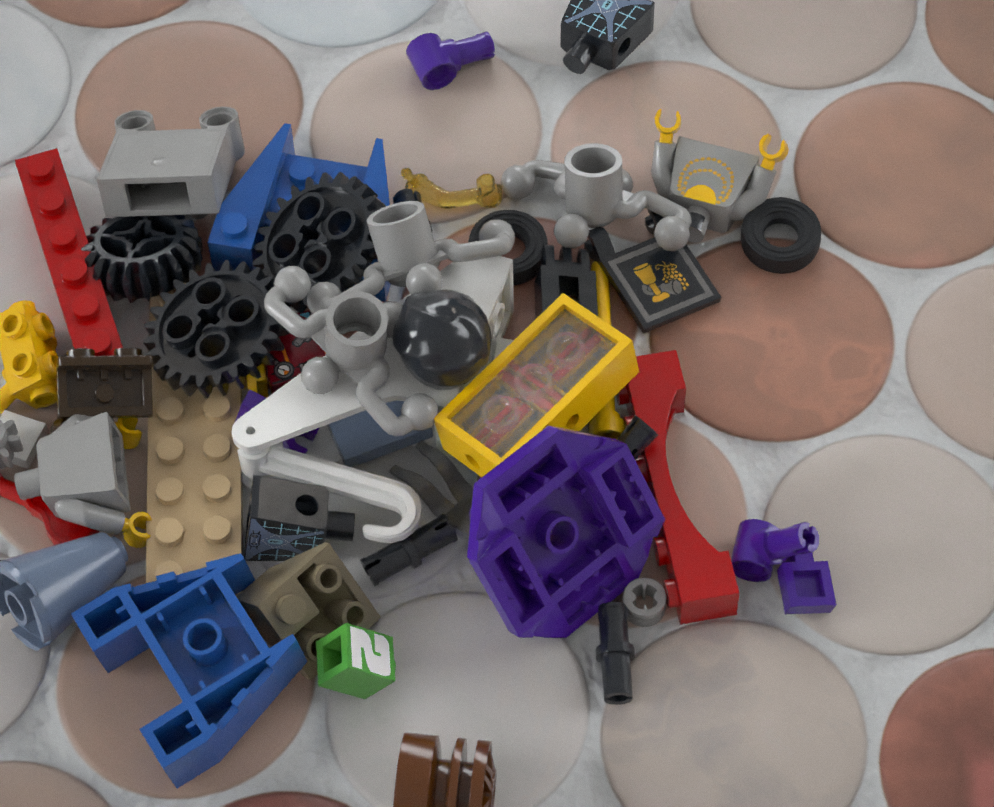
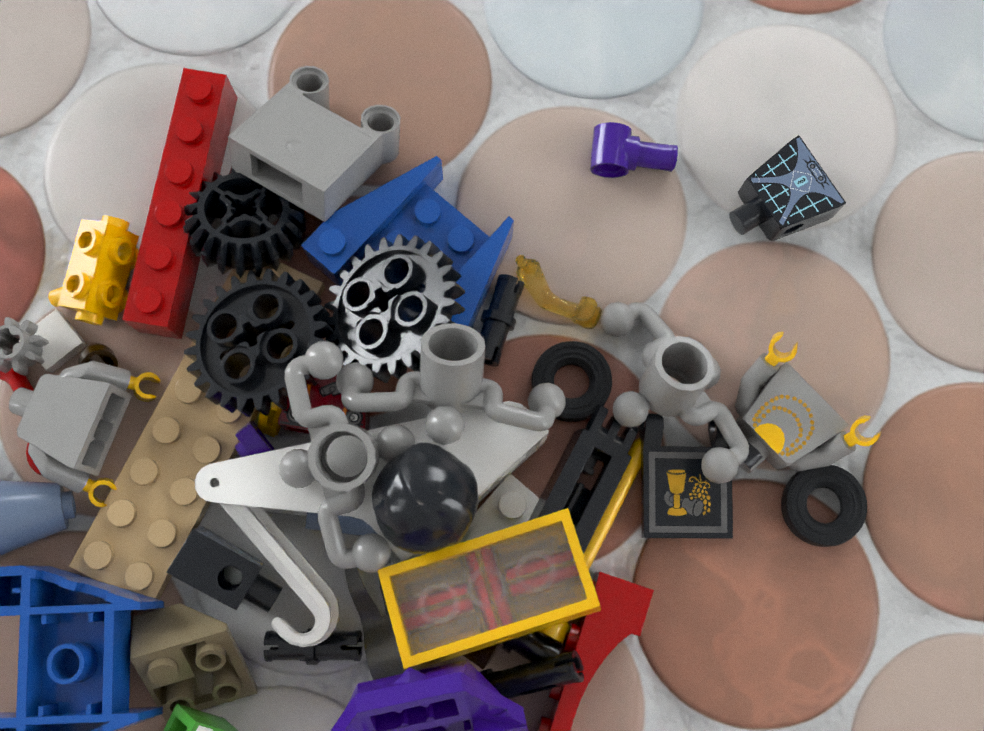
camera: 25 degrees right, 20 degrees up
(104, 384) = (131, 347): dark brown bracket -> none

